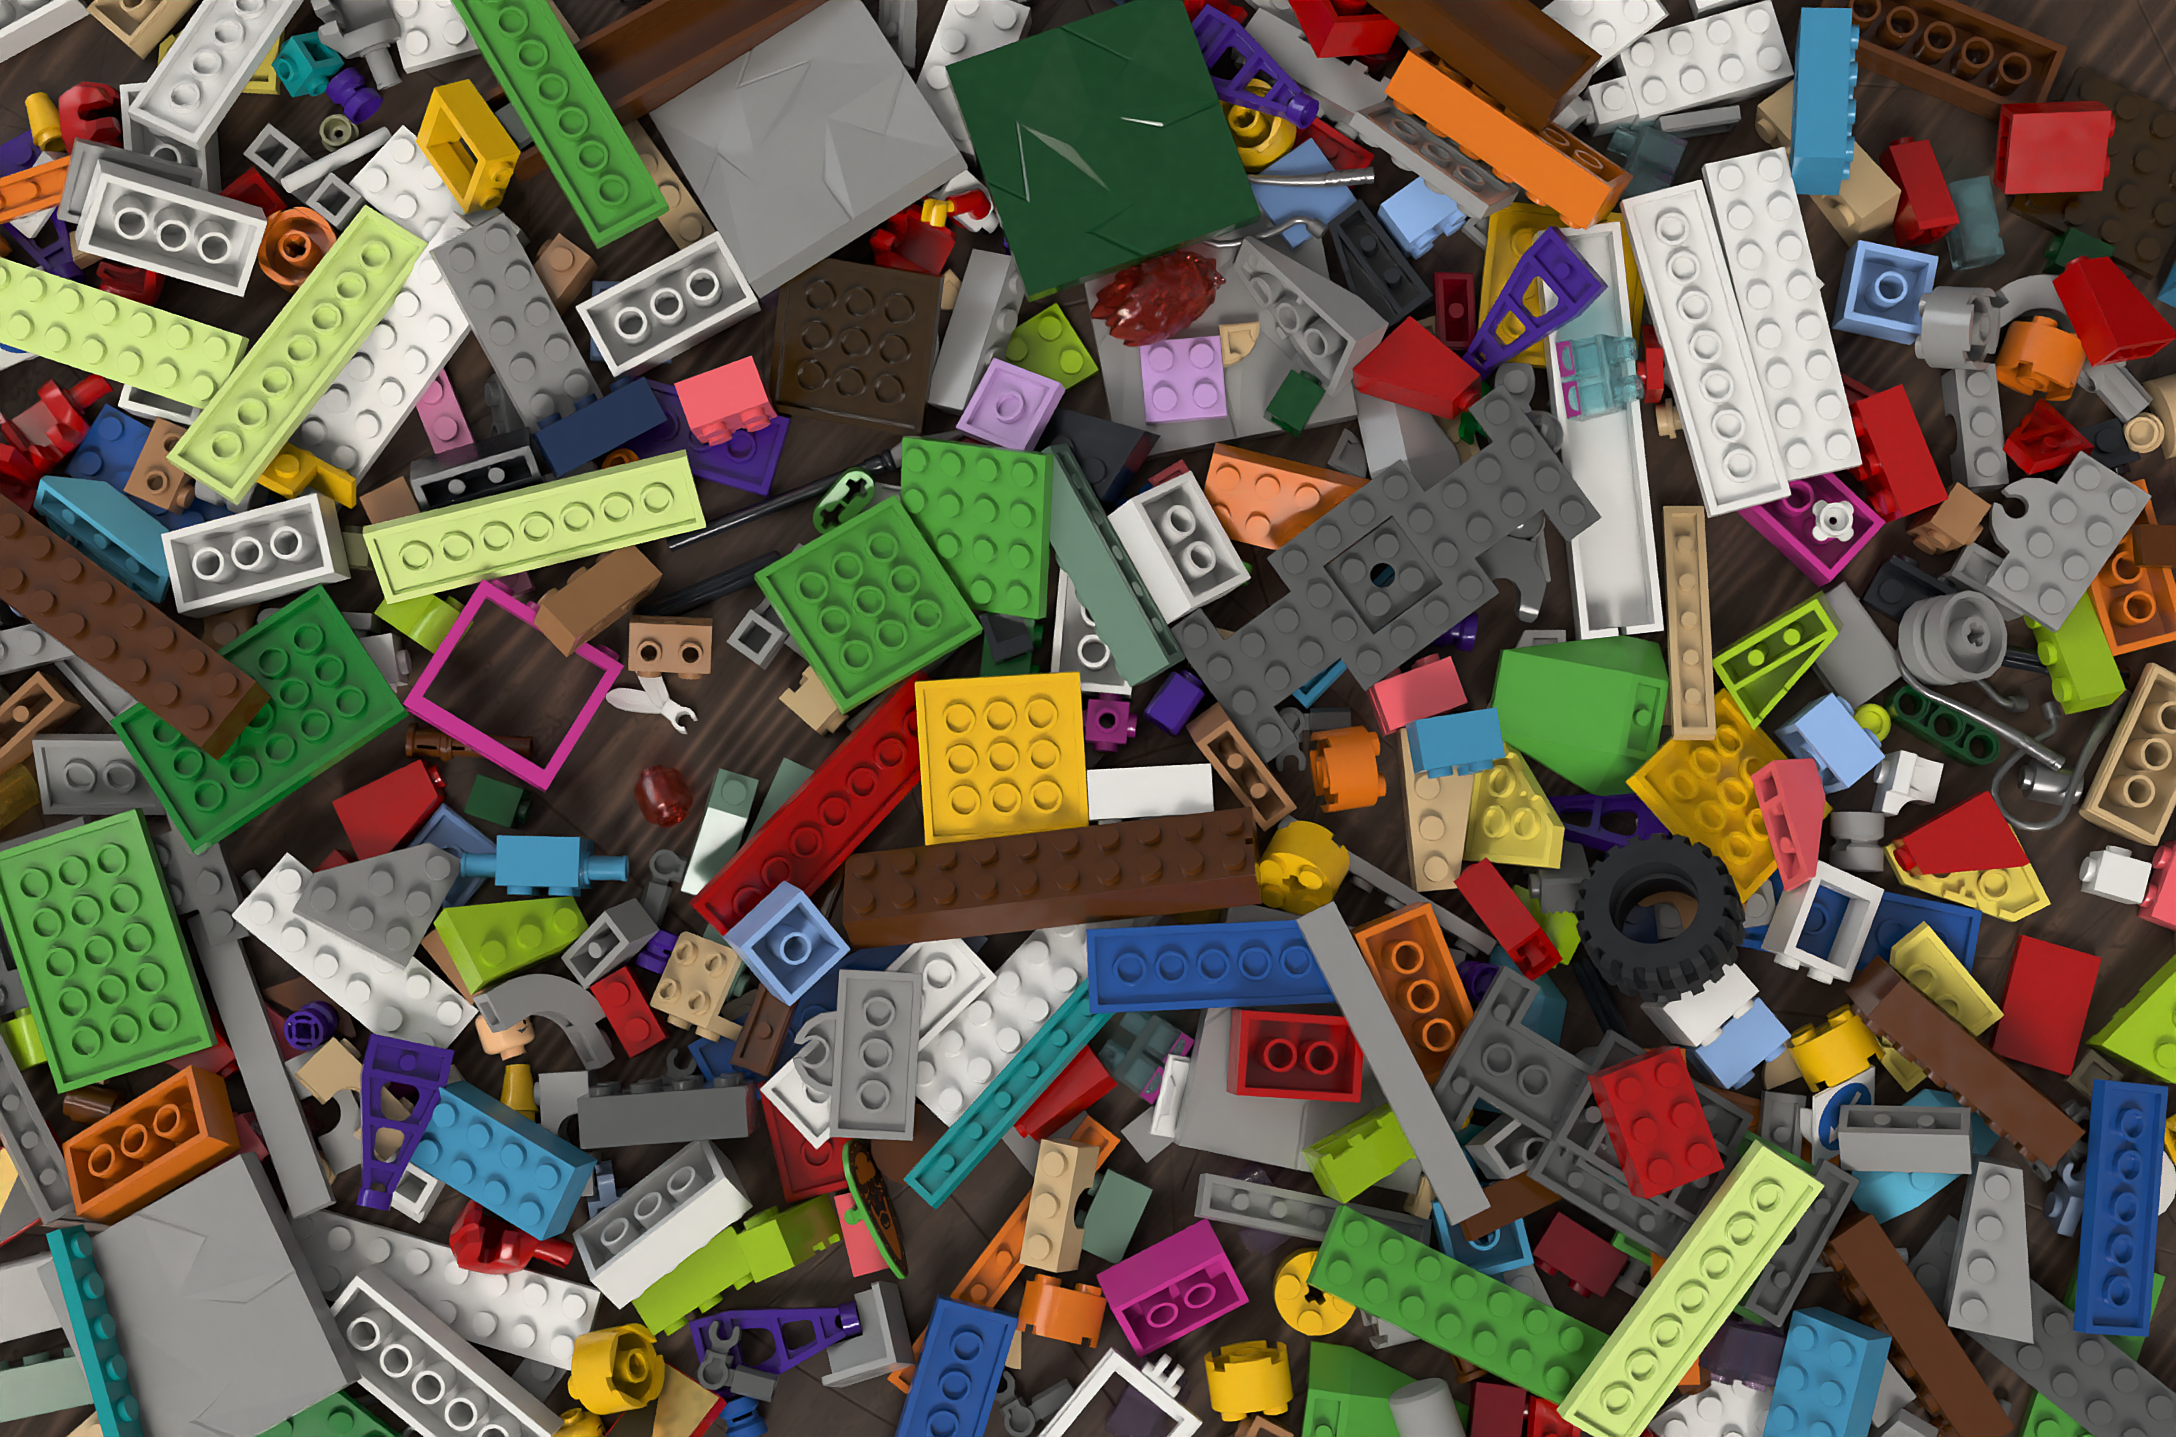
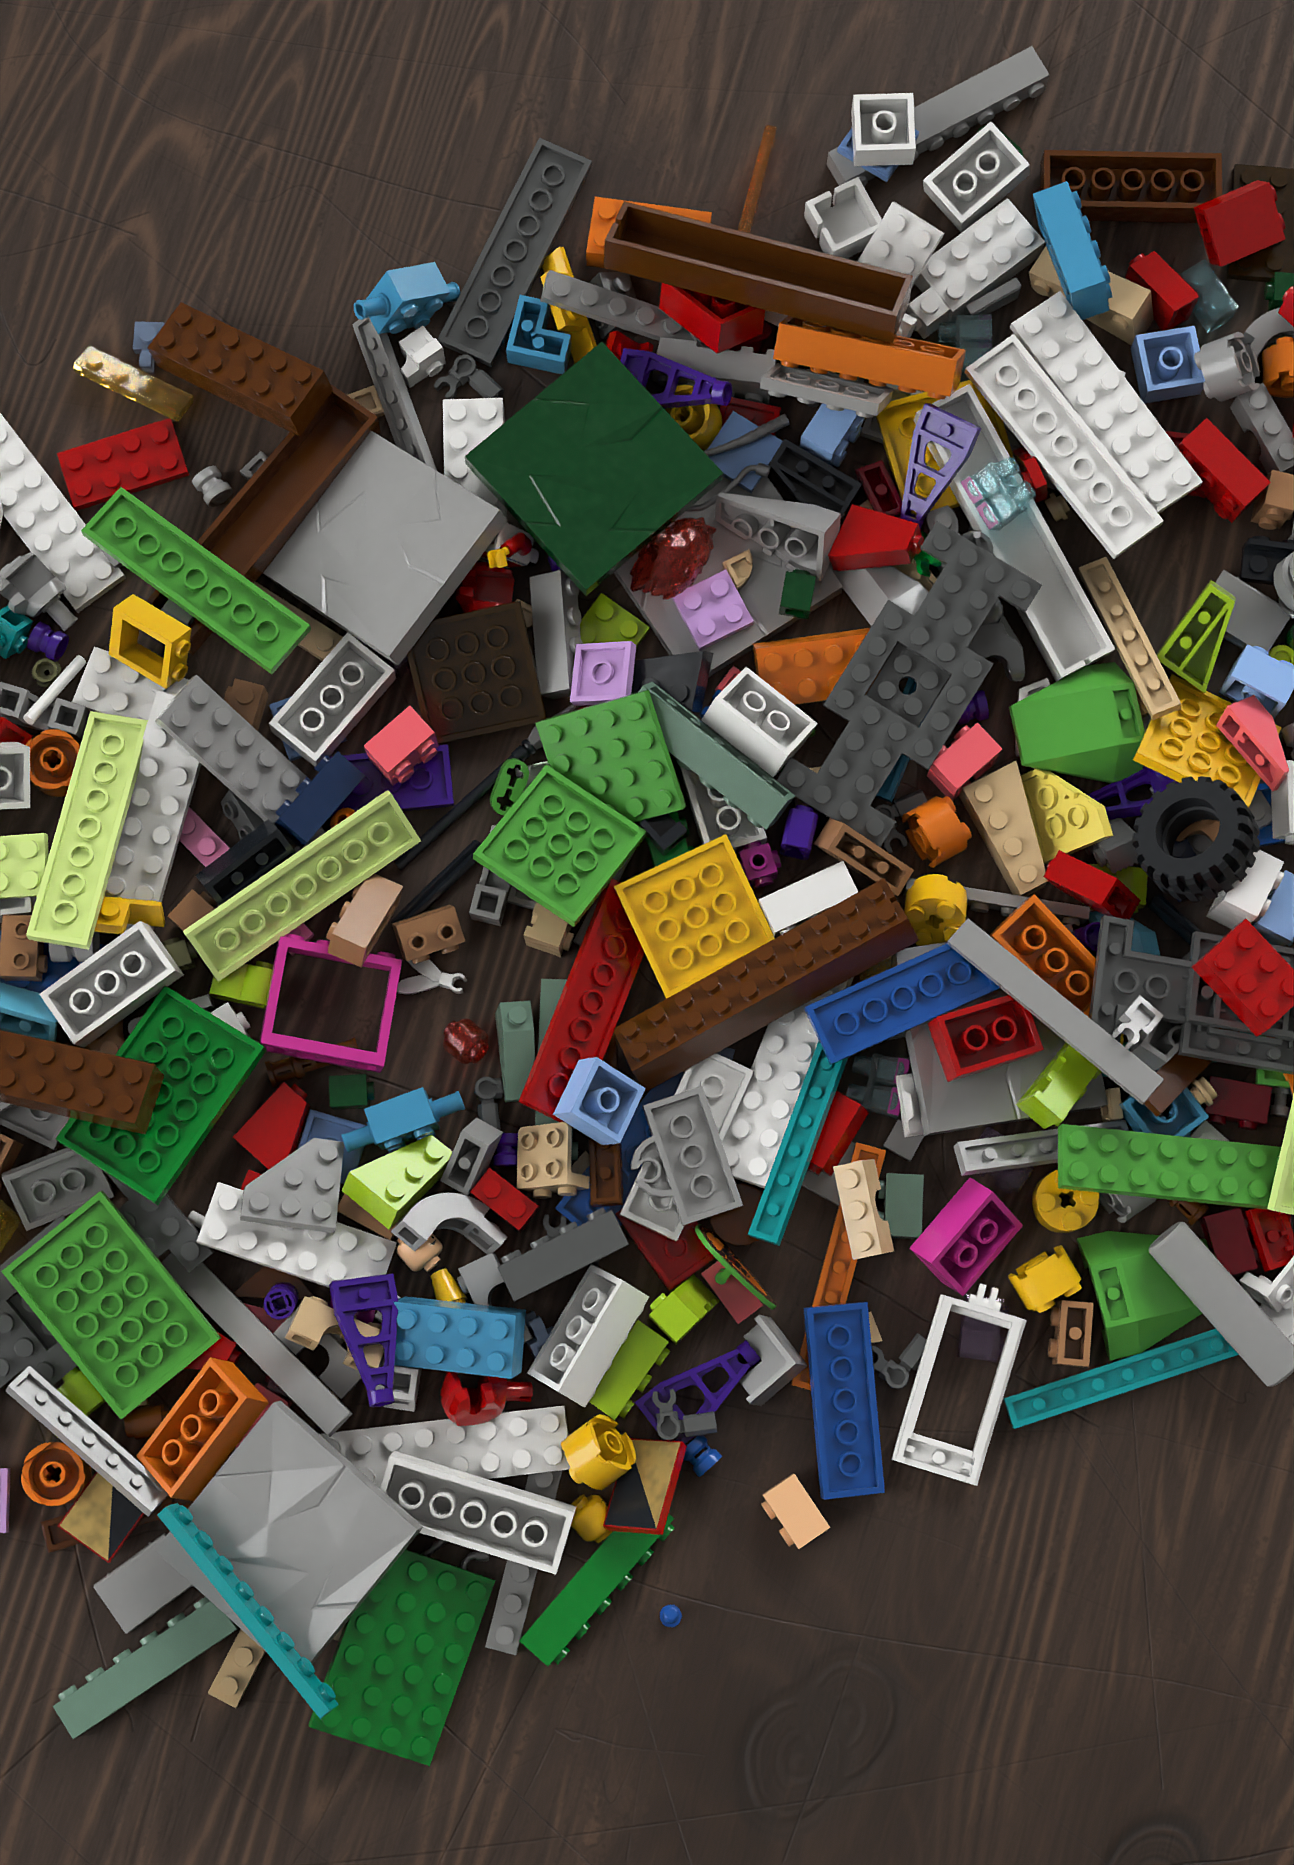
camera: 25 degrees left, 5 degrees down
(1061, 1311) = (895, 1285): orange brick -> none
(1348, 456) = (847, 618): light grey tile -> none
(1457, 742) = (1006, 777): dark azure brick -> none
(1490, 1118) = (1137, 1021): none -> light grey plate
(1539, 1229) = (1203, 1091): none -> tan plate
(1790, 523) = (1187, 539): dark pink brick -> none
(1841, 512) = (1202, 521): white plate -> none

